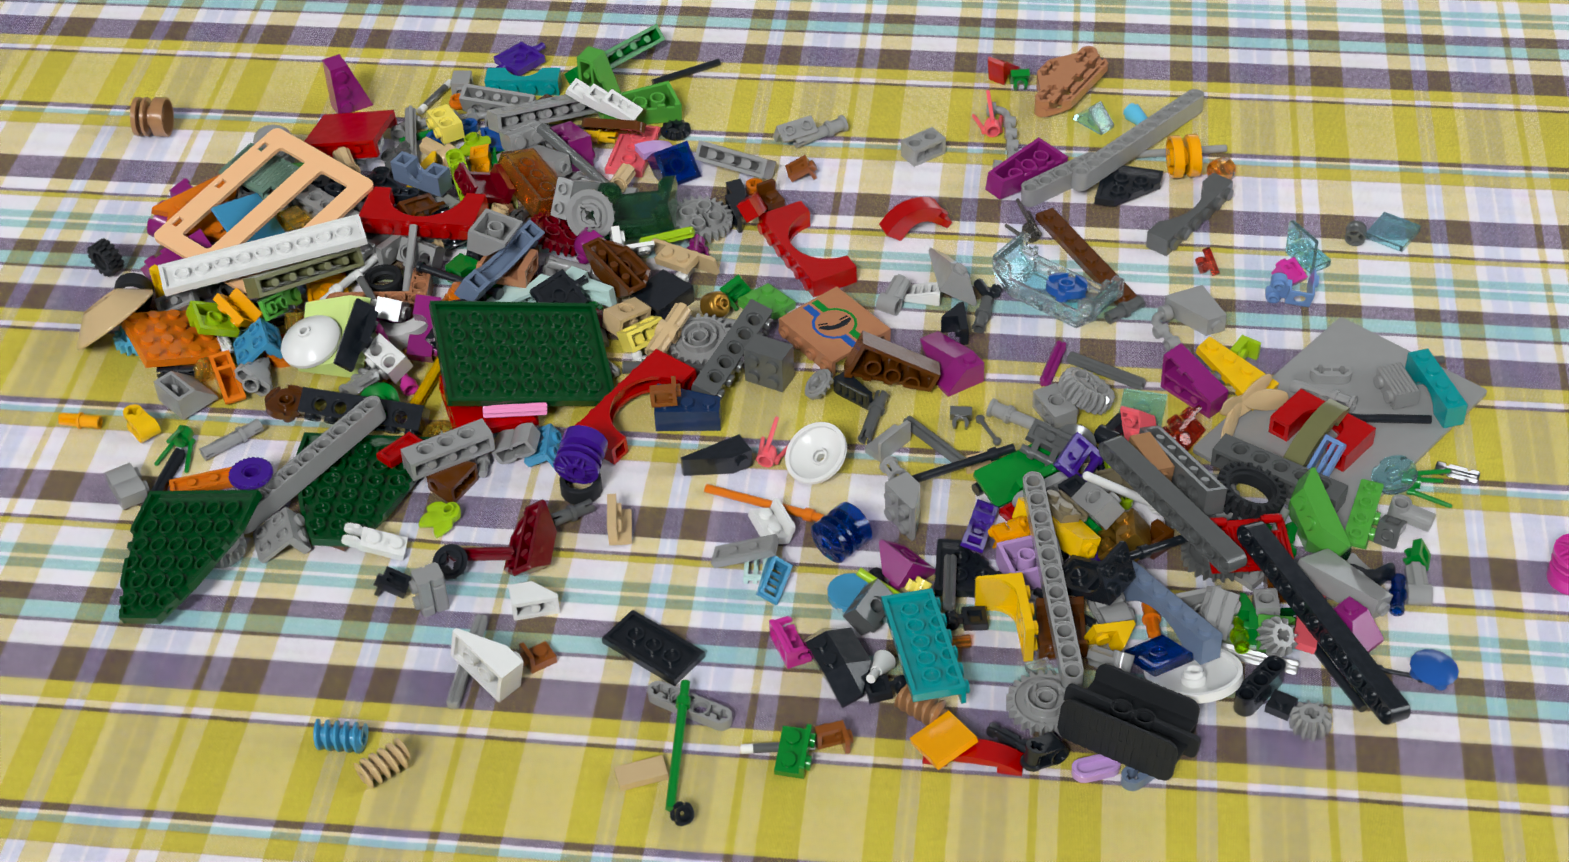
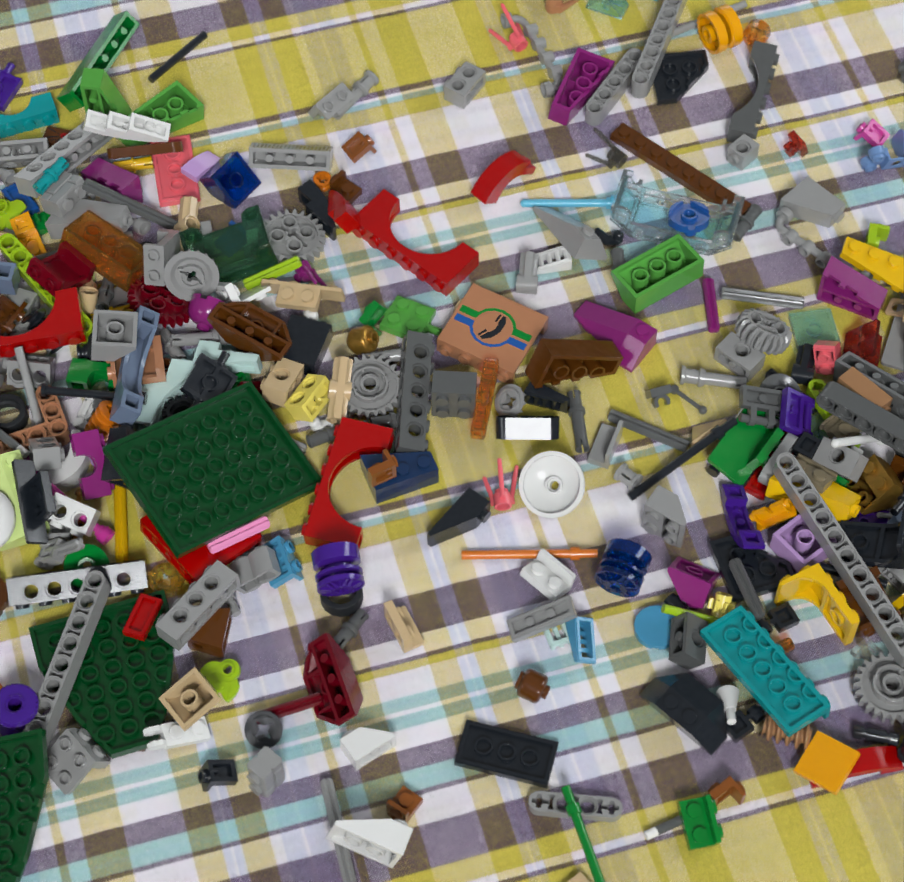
camera: 25 degrees left, 15 degrees up
(400, 515) = (190, 698): none -> tan slope
(516, 116) = (51, 175): none -> teal pin
(670, 130) = (205, 139): black gear -> none
(705, 599) = (532, 685): none -> reddish brown head
(783, 390) = (484, 398): none -> clear orange beam
(788, 642) = (630, 704): dark pink hinge -> none
(822, 407) = (527, 427): none -> beam
(956, 321) = (603, 285): black slope -> none
(959, 253) = (568, 202): none -> medium azure piece
(1013, 323) = (657, 273): none -> bright green slope
(1153, 255) = (742, 152): none -> light grey brick
(1305, 248) = (875, 105): clear light blue bracket -> none

